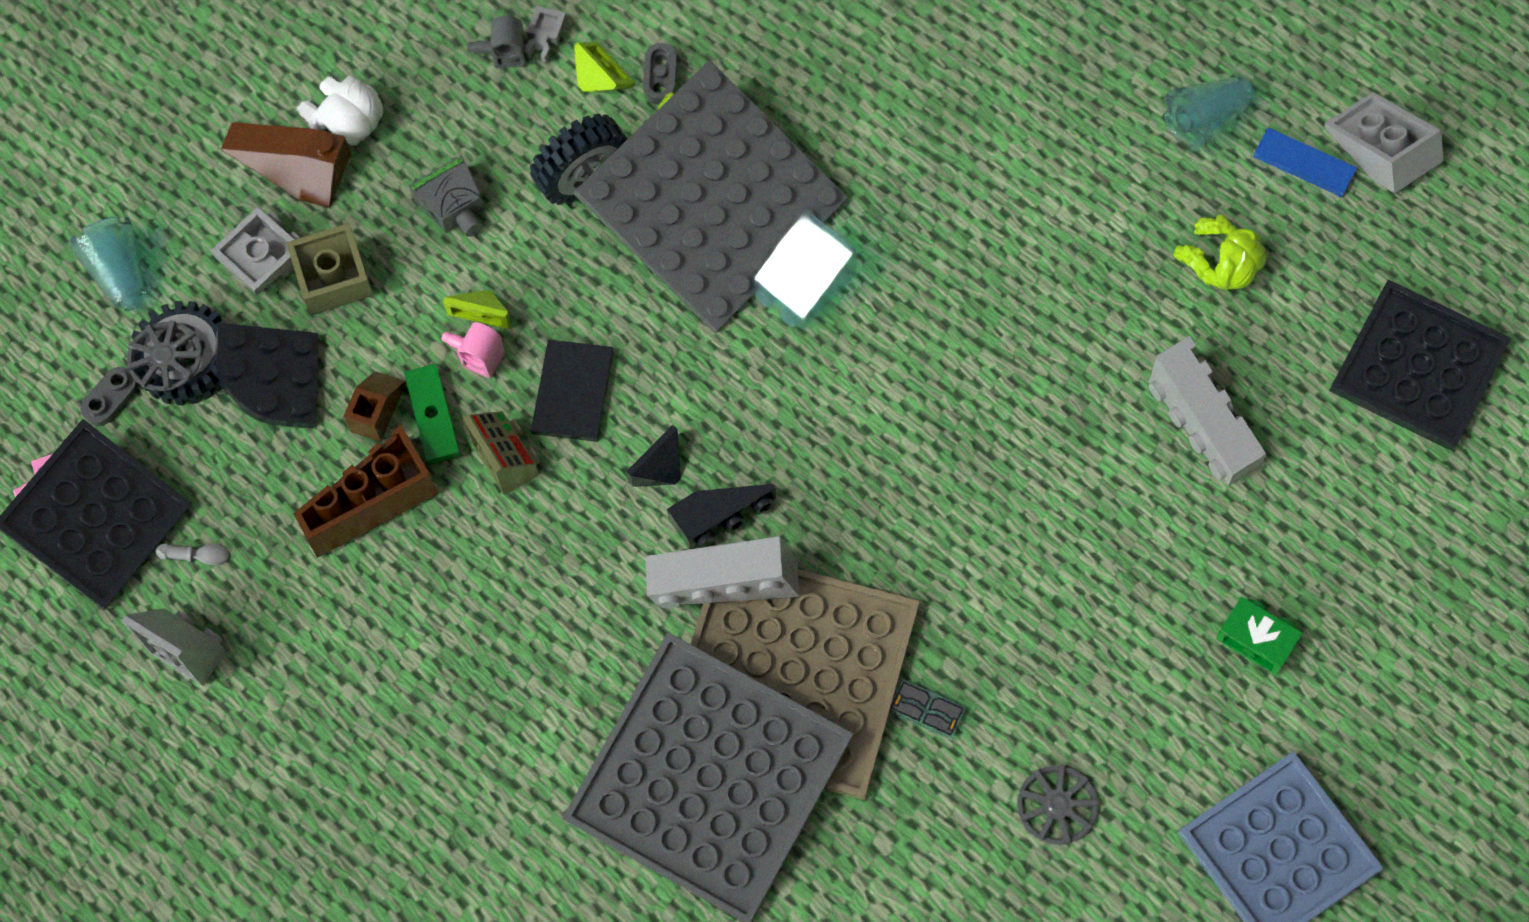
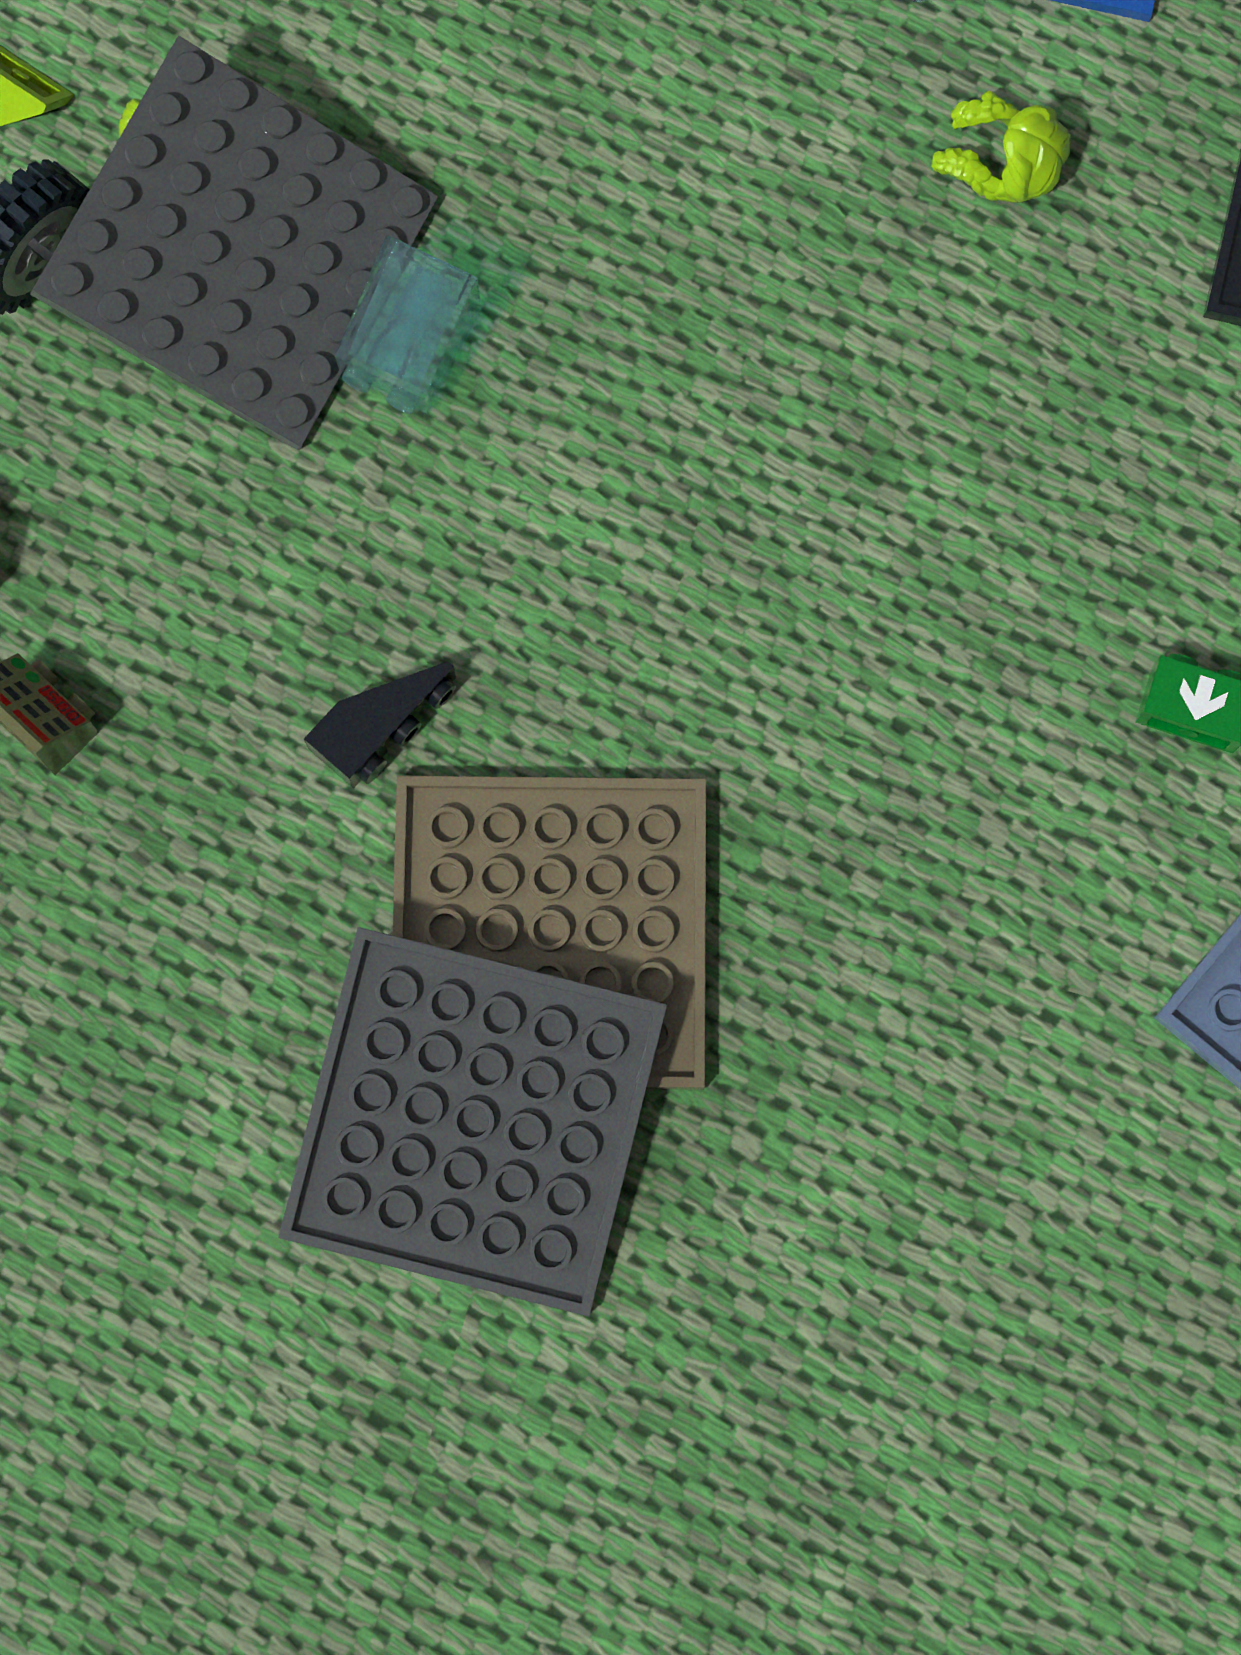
camera: 20 degrees left, 10 degrees up
(572, 390) = (112, 591): black tile -> none
(659, 75) = (107, 73): dark grey plate -> none
(659, 463) = (272, 670): black slope -> none
(723, 573) = (412, 817): light grey wedge -> none
(927, 709) = (757, 934): tile -> none
(1057, 804) = (977, 1022): dark grey wheel -> none
(1204, 412) = (1039, 395): light grey wedge -> none

